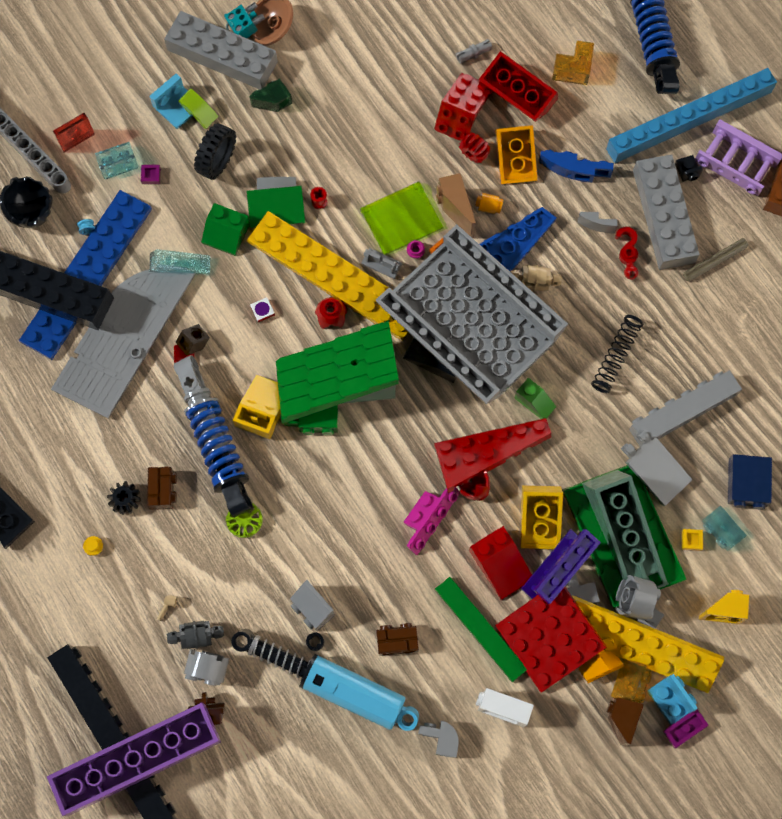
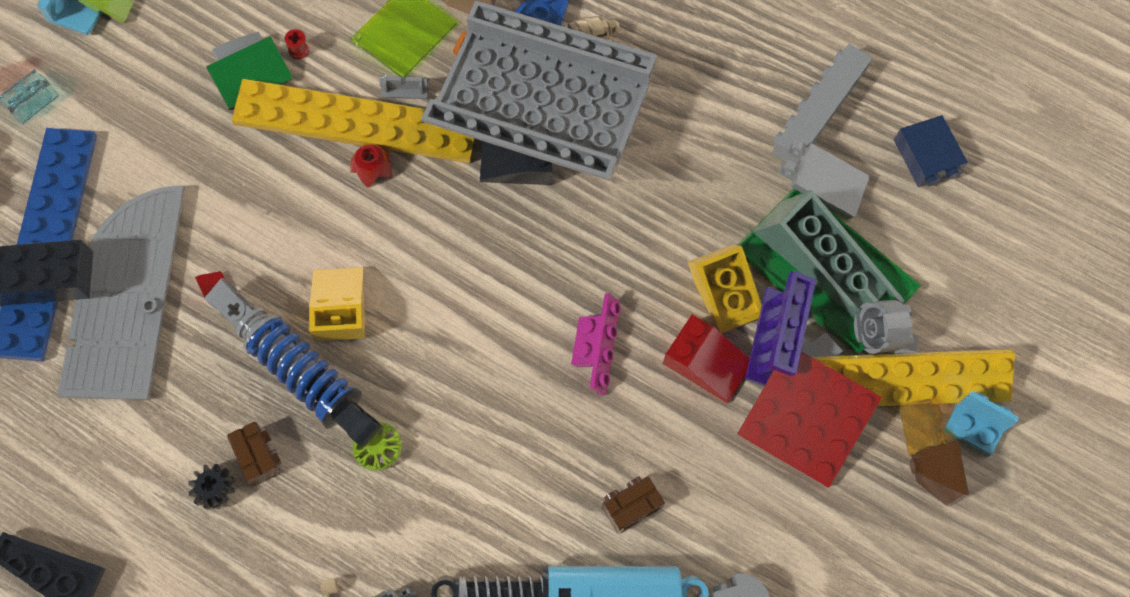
camera: 30 degrees left, 5 degrees down
(86, 226) = (20, 185): medium azure bush -> none
(93, 545) = (197, 564): yellow plate -> none
(150, 174) = (77, 97): magenta tile -> none
(179, 262) = (152, 180): clear light blue slope -> none
(192, 339) = (215, 261): dark brown brick -> none
(215, 151) = (147, 35): black tyre -> none
(225, 229) = (198, 121): green slope -> none
(262, 309) = (286, 194): tile -> none
(310, 637) = (541, 556): black bush -> none
(312, 606) = (511, 510): light grey slope -> none
(322, 422) = (408, 291): green brick -> none
(338, 372) = (416, 220): green piece -> none
(415, 244) = (436, 51): dark pink plate -> none
(473, 454) = (624, 245): red wing -> none
(477, 489) = (639, 284): red piece -> none
(480, 629) = (722, 447): green tile -> none
(504, 707) = (800, 523): white window -> none
(535, 399) = (653, 162): bright green slope -> none
(600, 665) = (880, 425): light orange slope -> none
(628, 323) = (725, 112): black piece -> none
(685, 728) = (1008, 452): magenta plate -> none
(692, 539) = (903, 240): yellow plate -> none
(723, 528) = (929, 214): clear light blue bracket -> none
(728, 609) = (986, 295): yellow slope -> none

